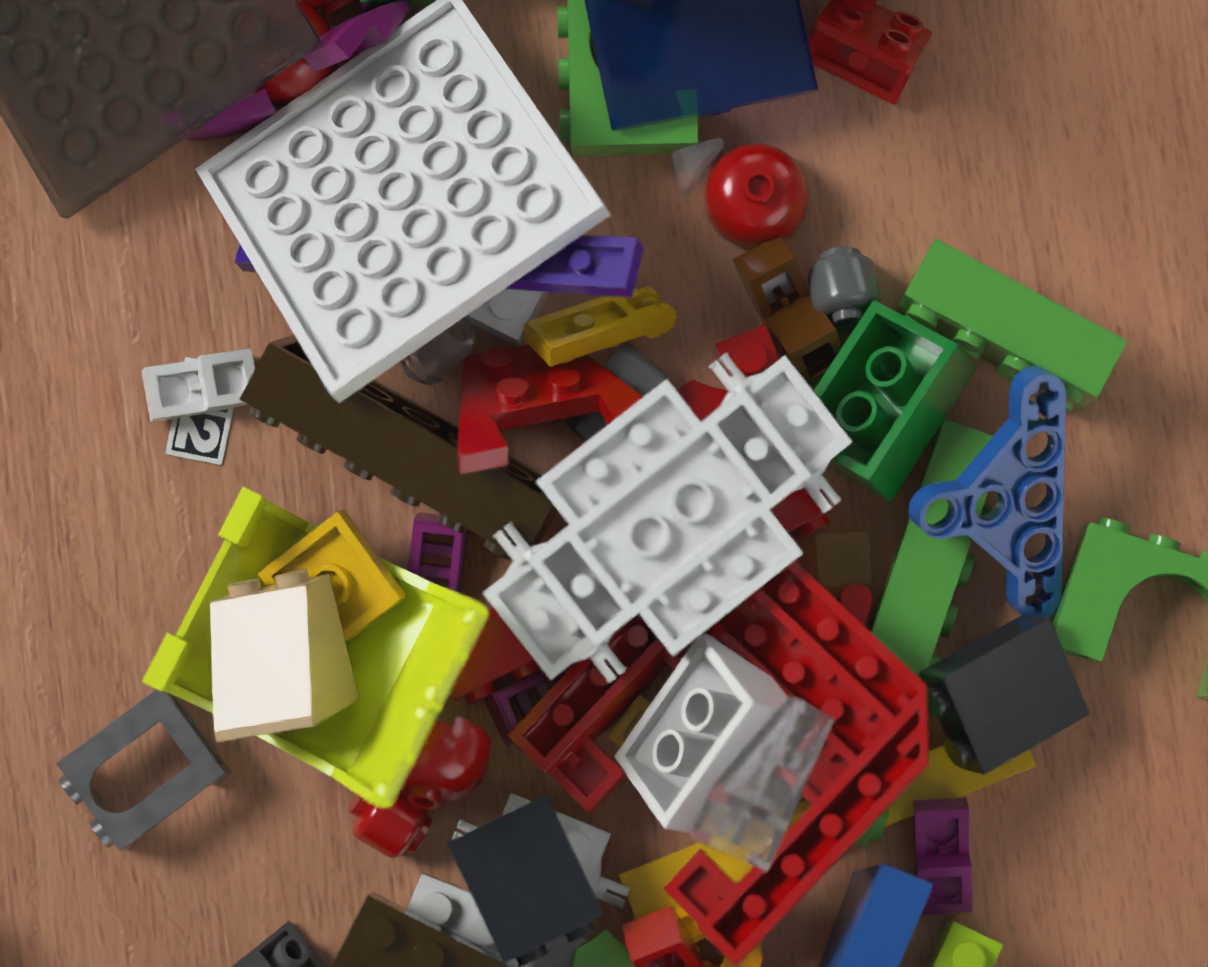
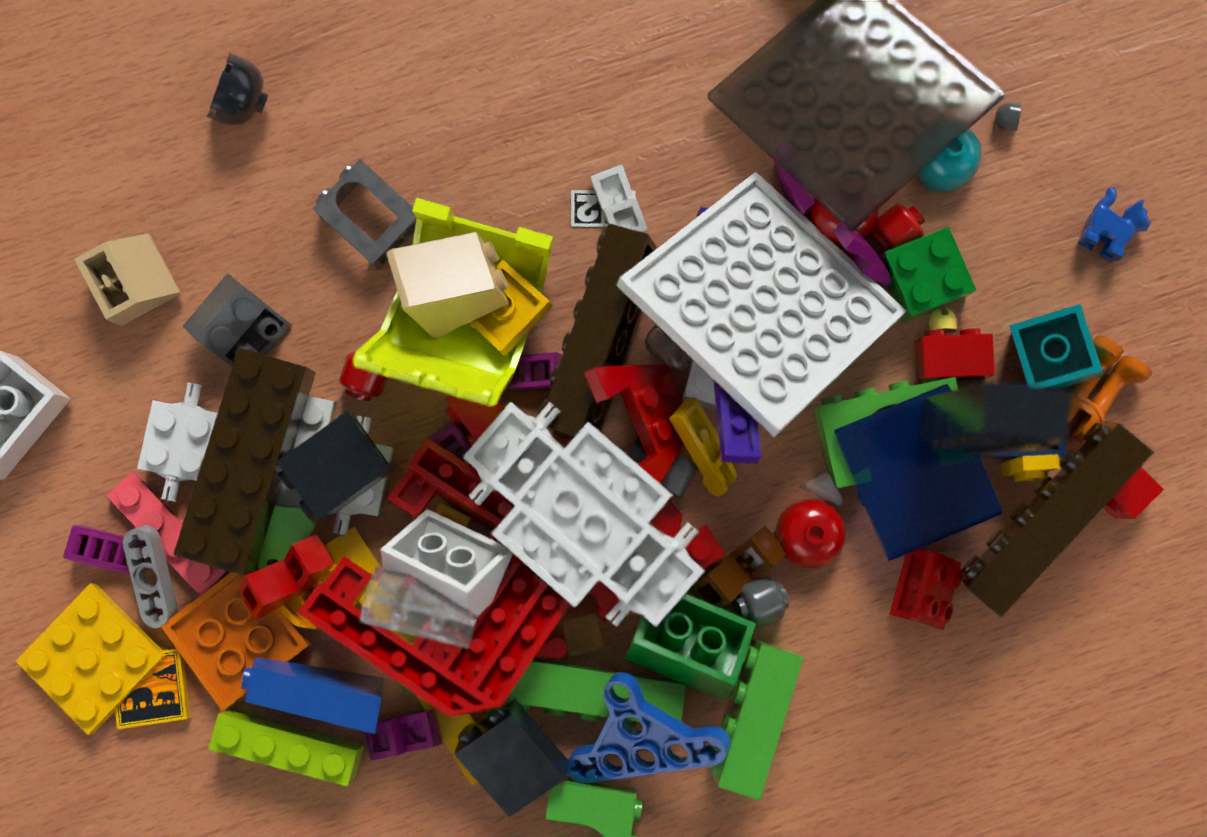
camera: 75 degrees right, 0 degrees up
(448, 764) = (400, 402): red cylinder -> none

